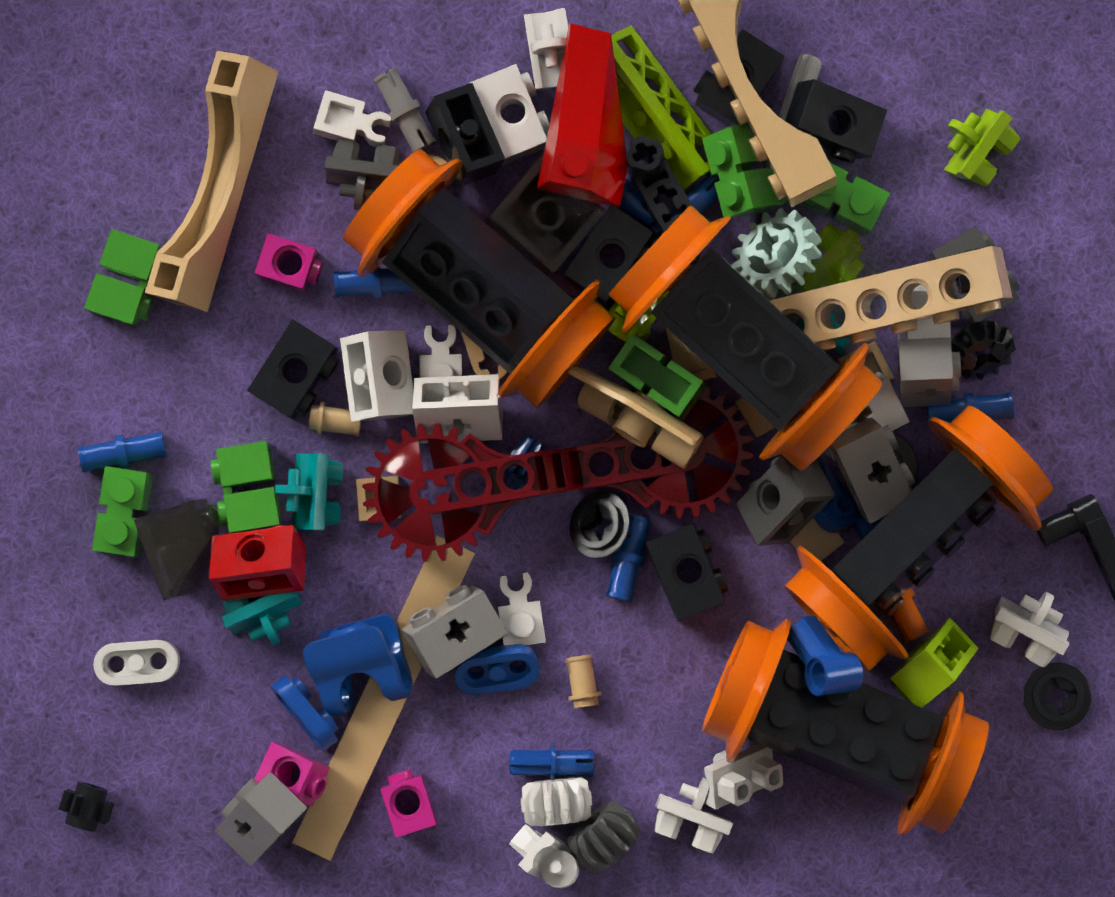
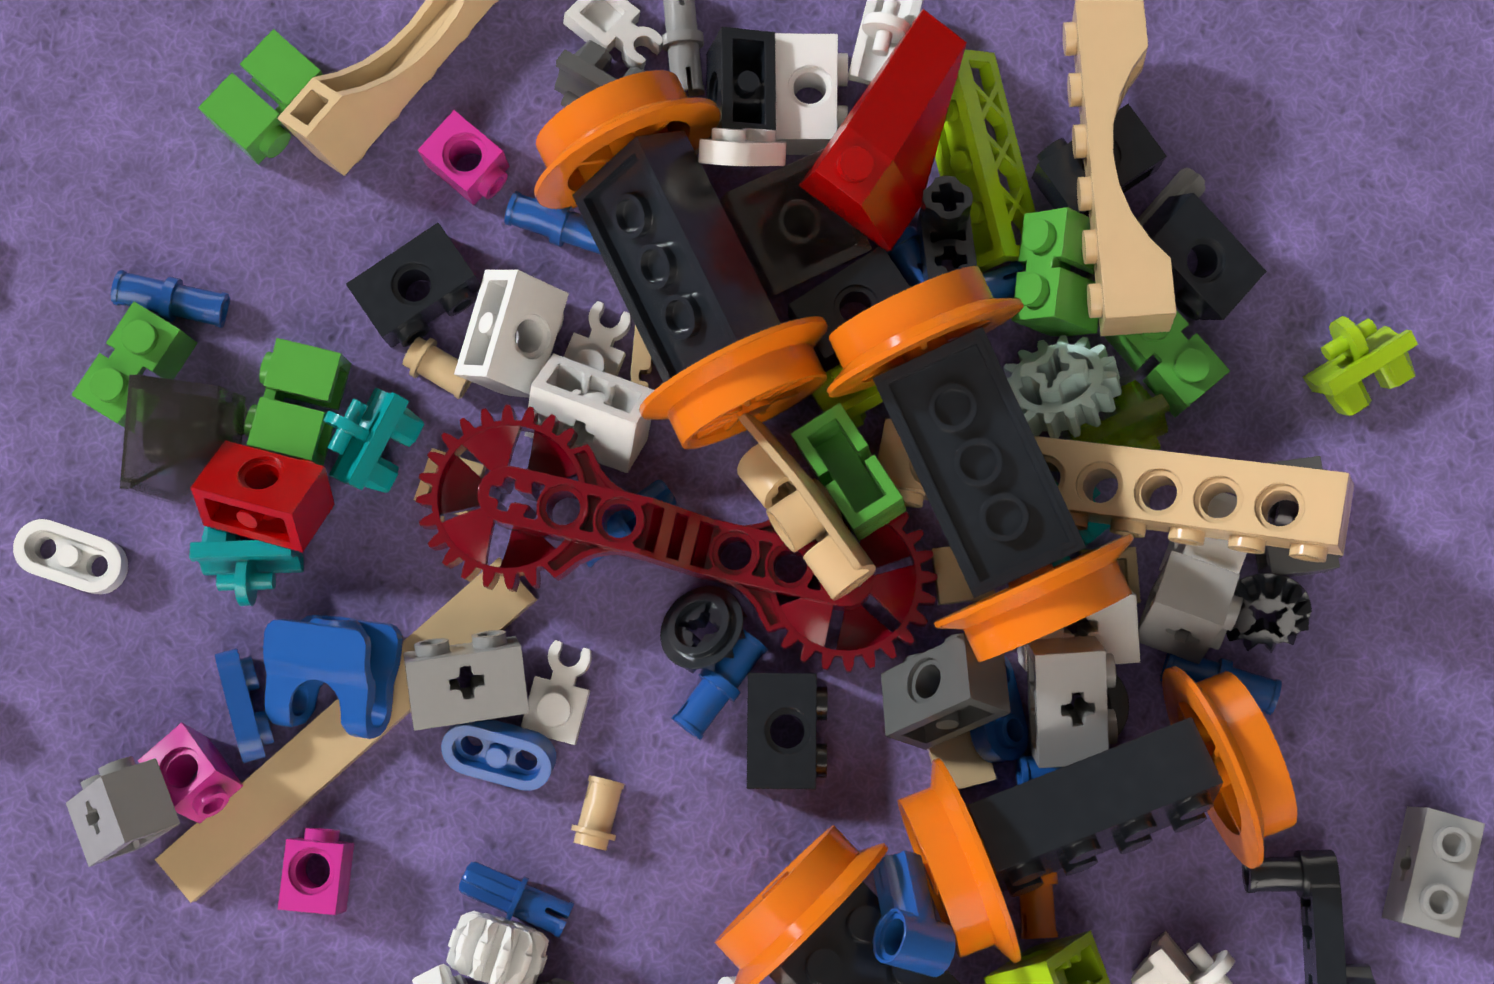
camera: 25 degrees right, 5 degrees down
(491, 183) = (742, 148): none -> white plate

